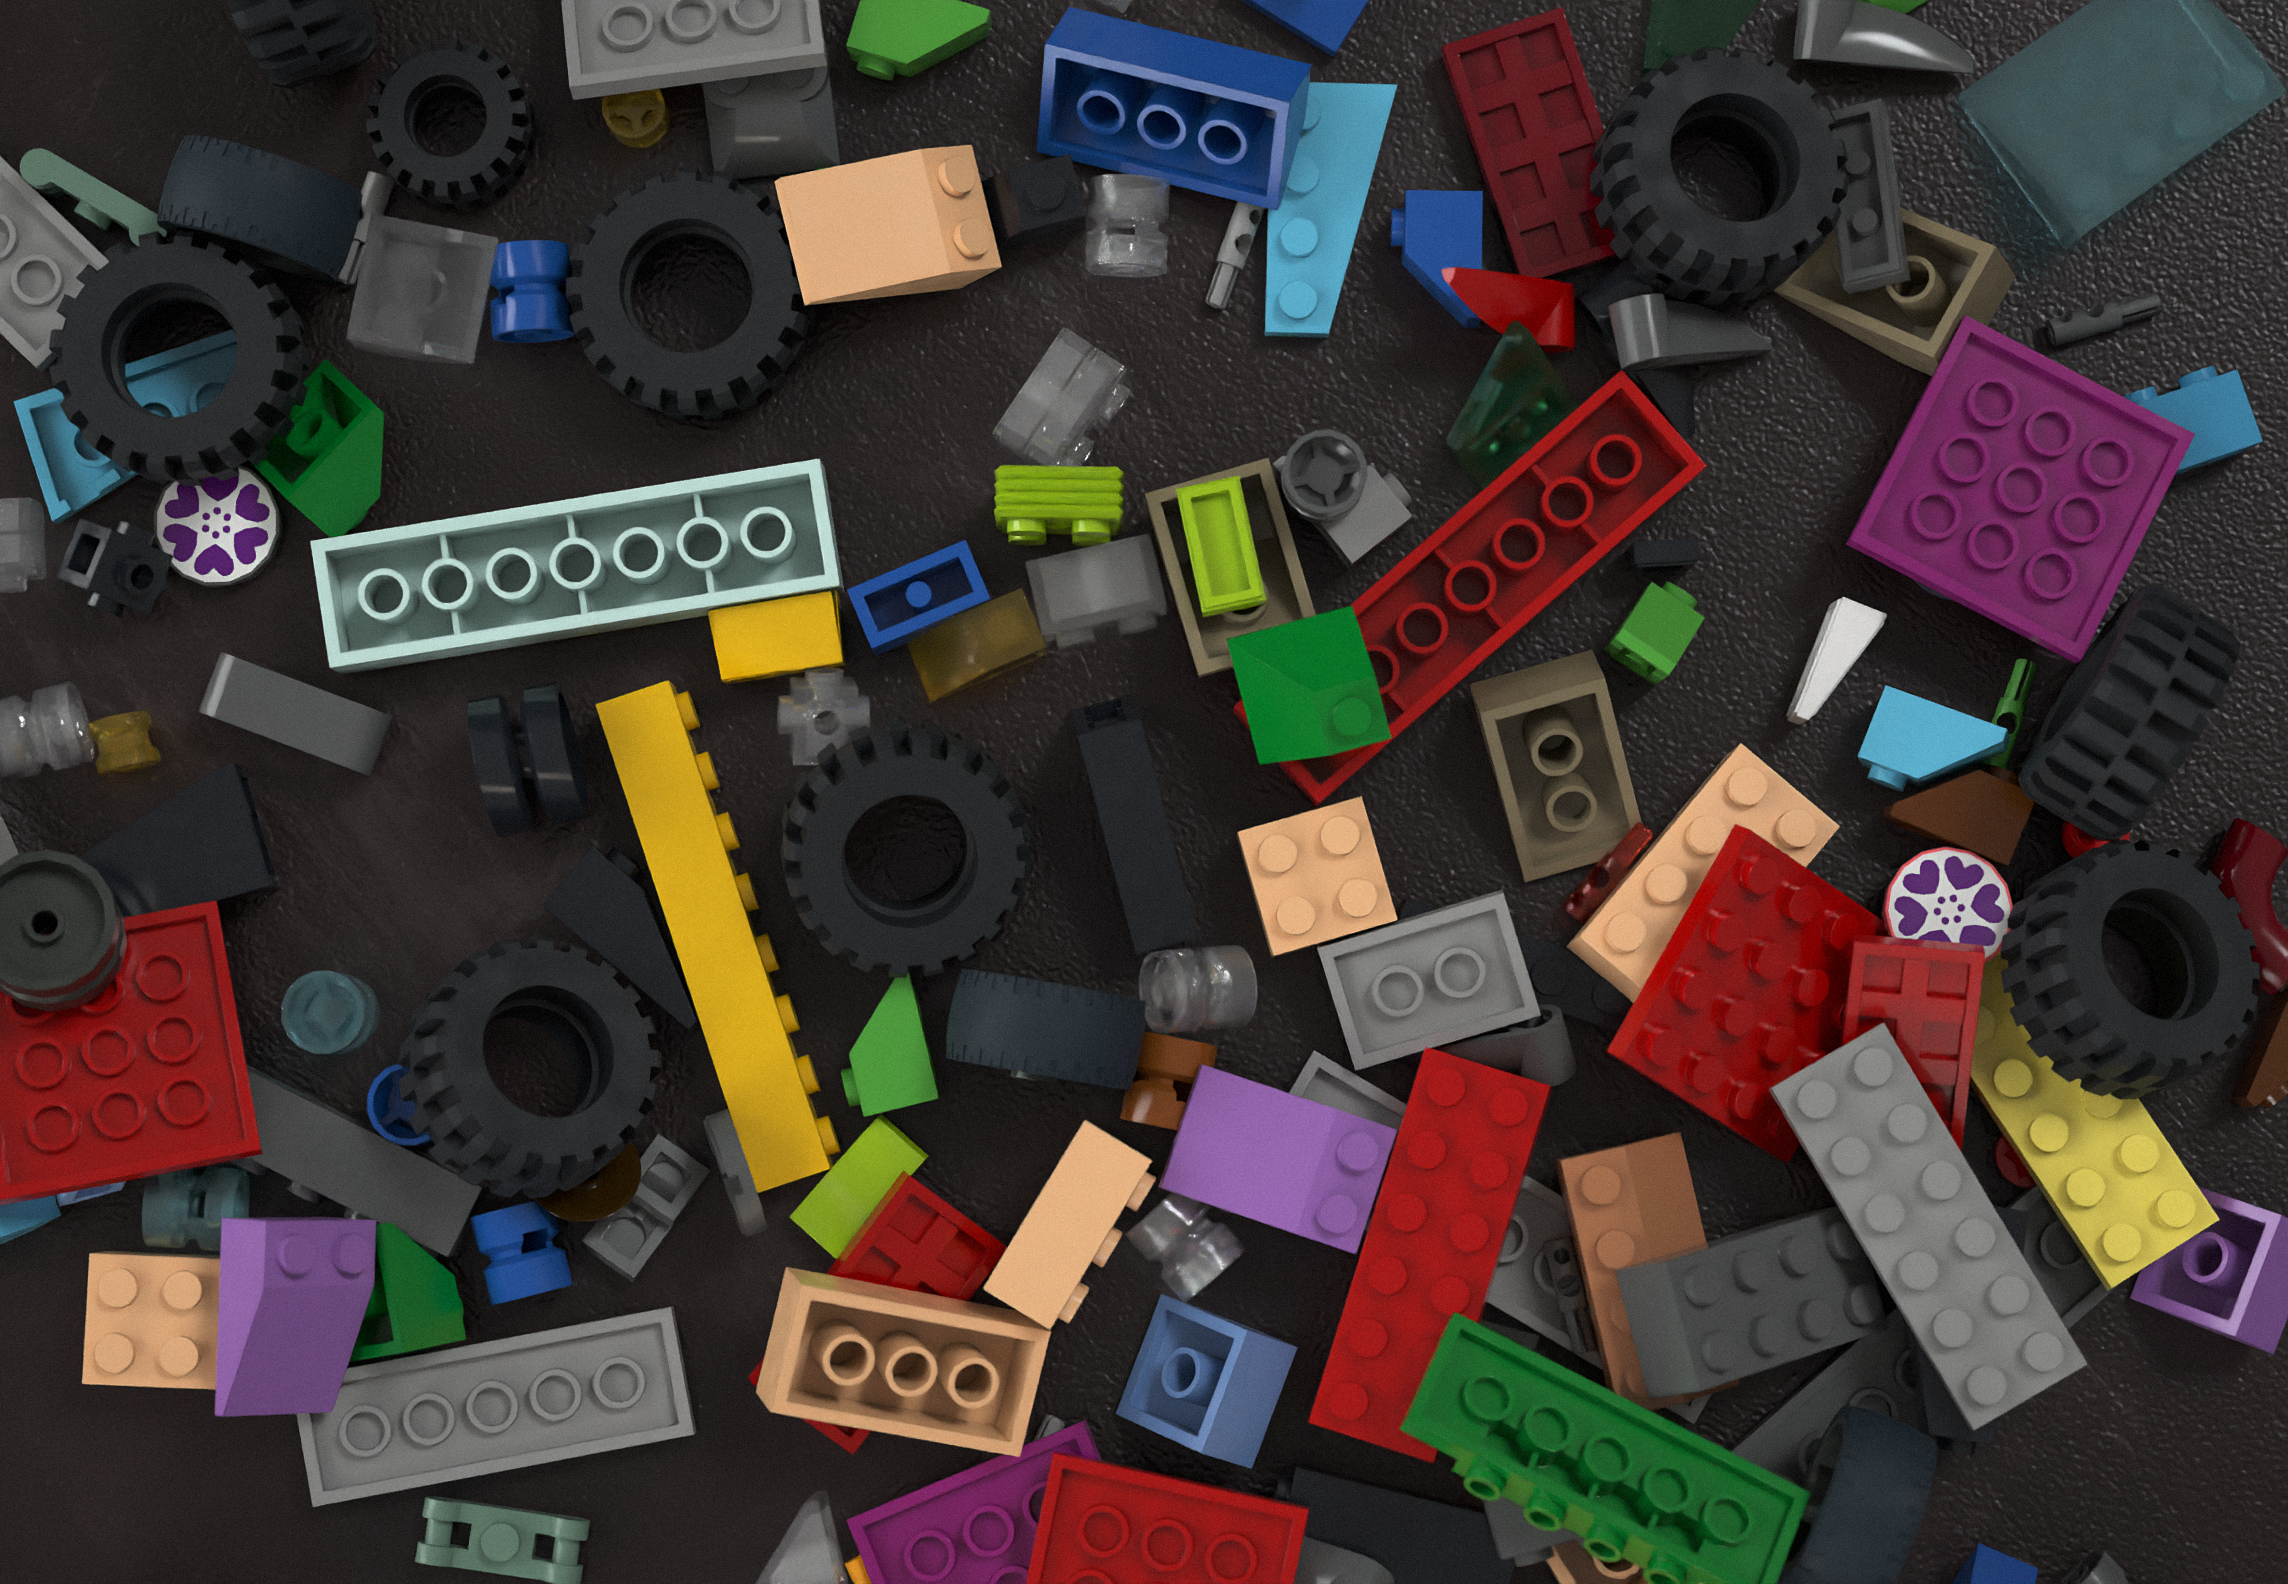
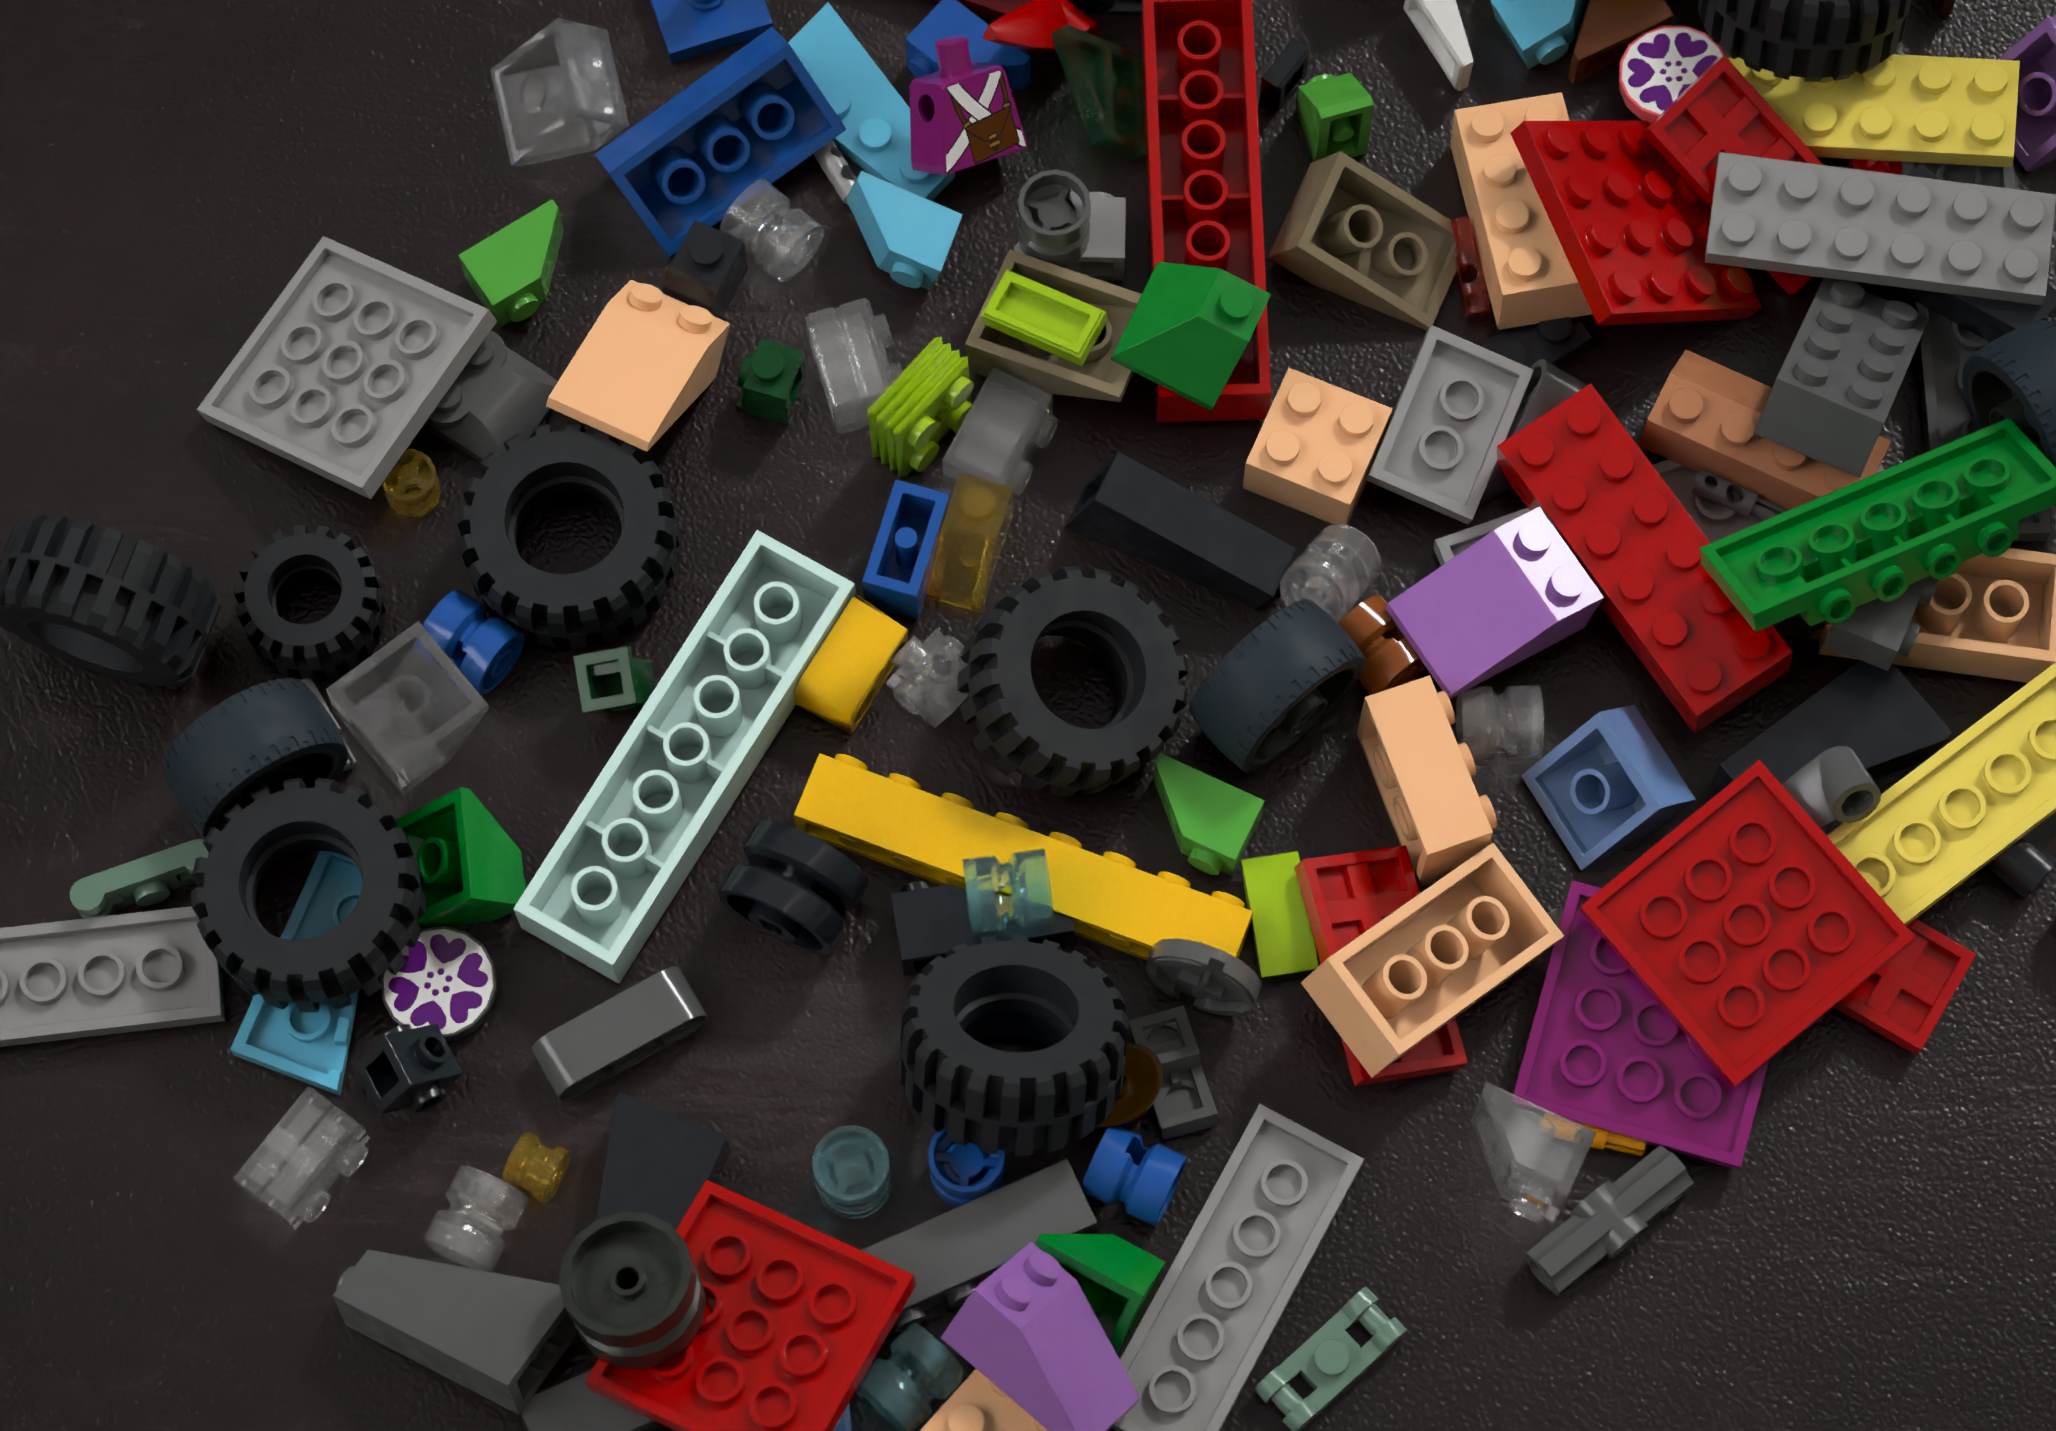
camera: 50 degrees left, 15 degrees down
(591, 449) = (613, 680): none -> dark green brick
(662, 950) = (1029, 889): none -> clear light blue wheel
(985, 346) = (771, 381): none -> dark green brick
(1221, 345) = (903, 230): none -> medium azure slope
(1367, 305) = (961, 112): none -> magenta torso

